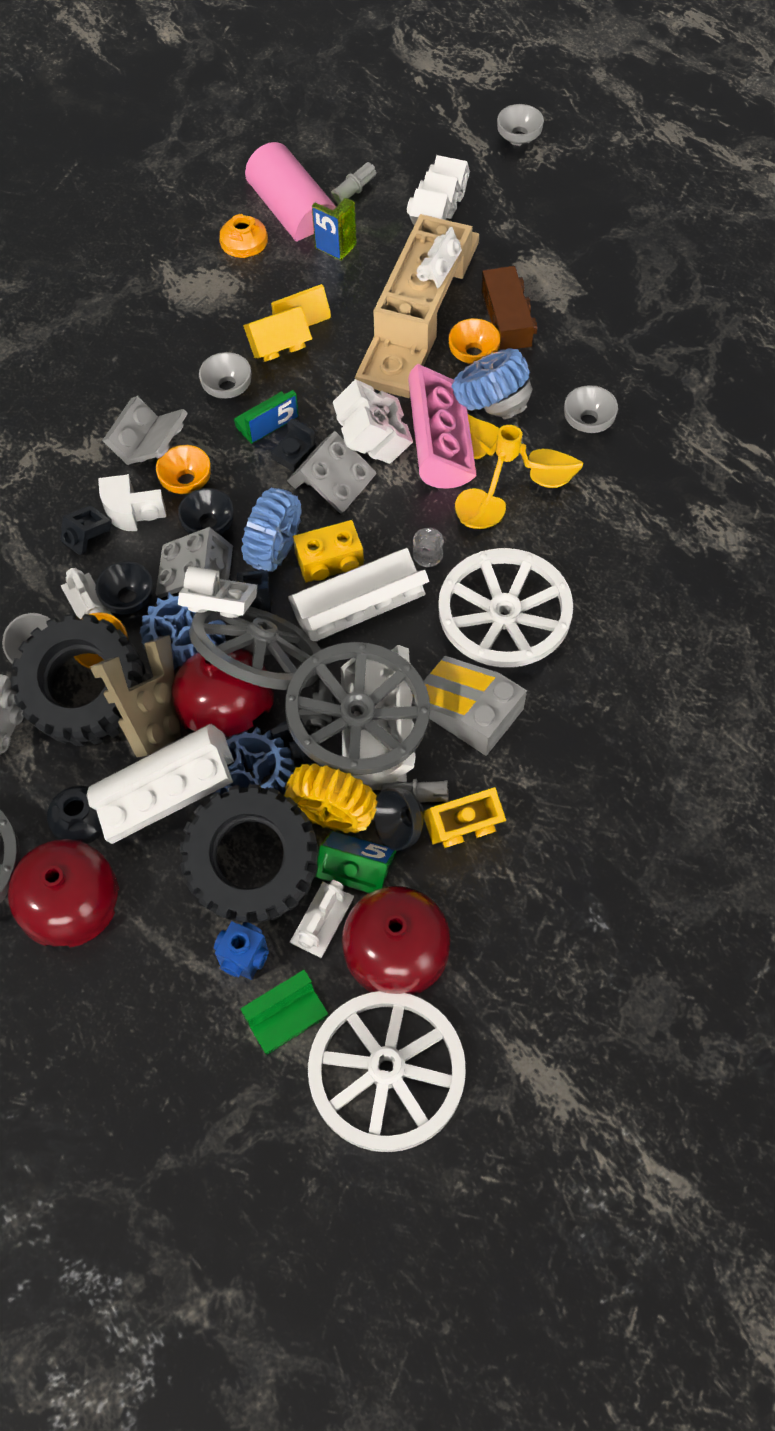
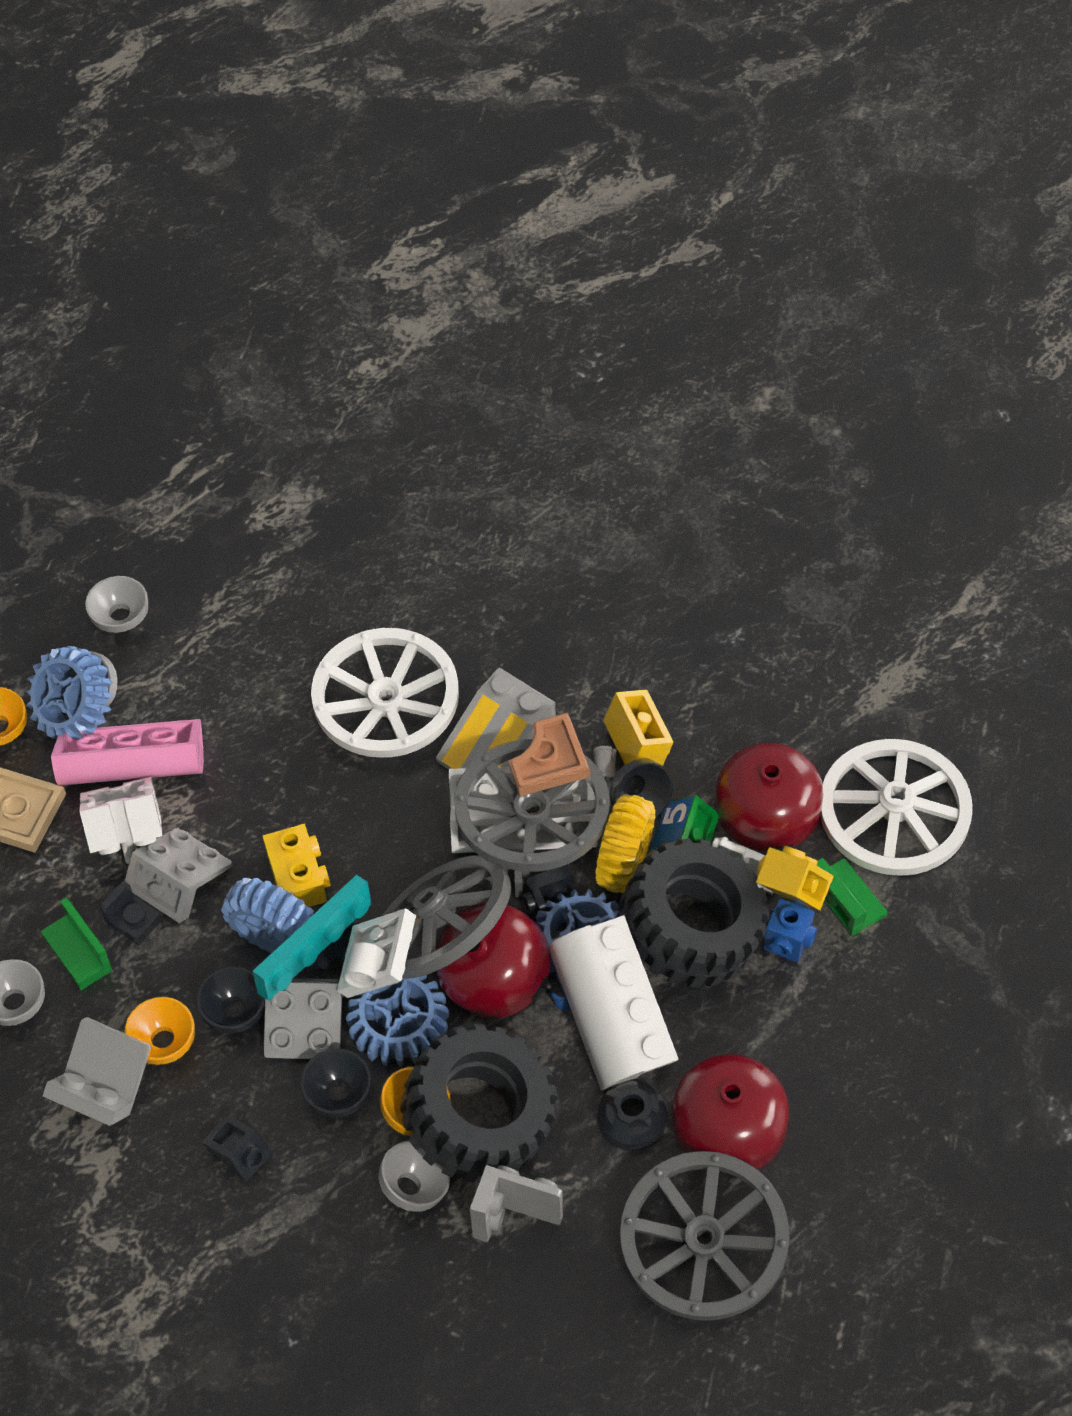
camera: 90 degrees left, 5 degrees down
(82, 593) = (346, 1134): white hinge -> none
(127, 507) = (204, 1104): white brick -> none
(148, 707) = (520, 1018): dark tan wing -> none
(241, 552) = (312, 938): none -> teal plate
(272, 942) = (794, 876): none -> yellow brick
(358, 595) = (361, 829): white brick -> none
(402, 719) = (551, 758): none -> nougat tile
(431, 540) = (295, 761): clear wheel -> none
(547, 466) = (190, 649): yellow plant -> none

